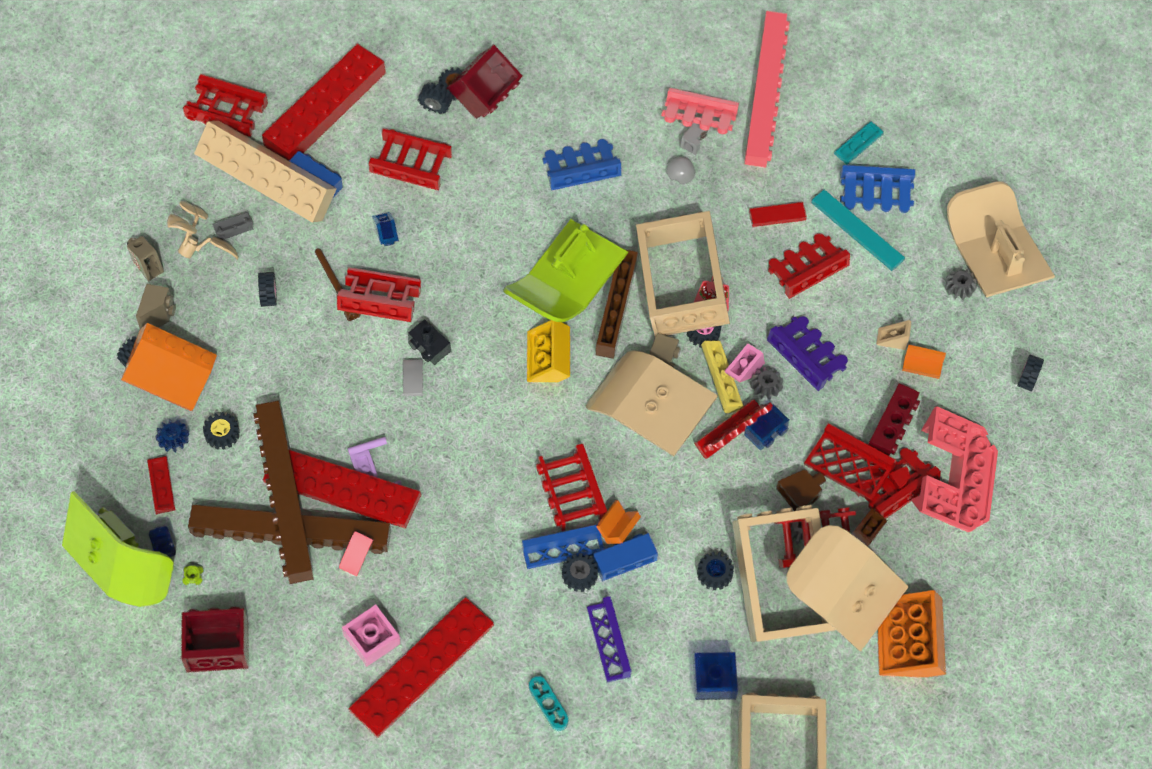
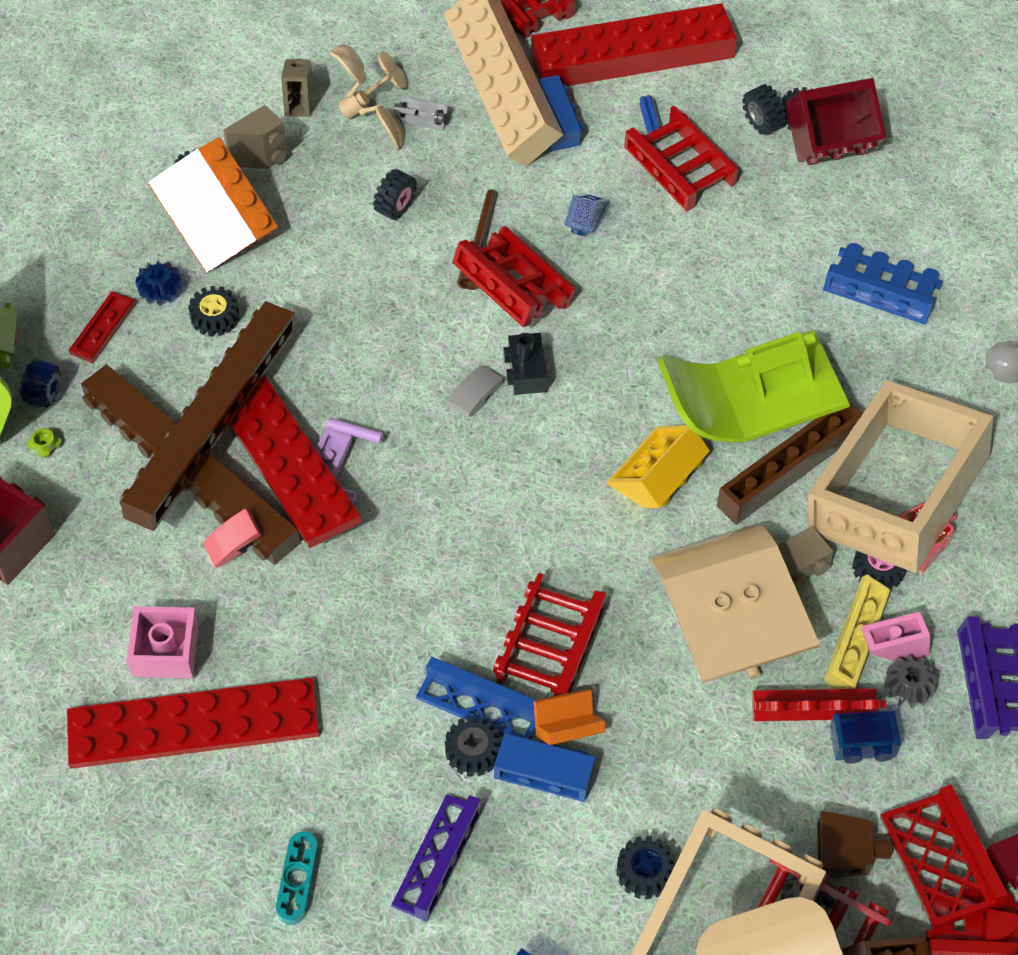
camera: 40 degrees right, 5 degrees down
(369, 142) = (649, 113): none -> blue axle

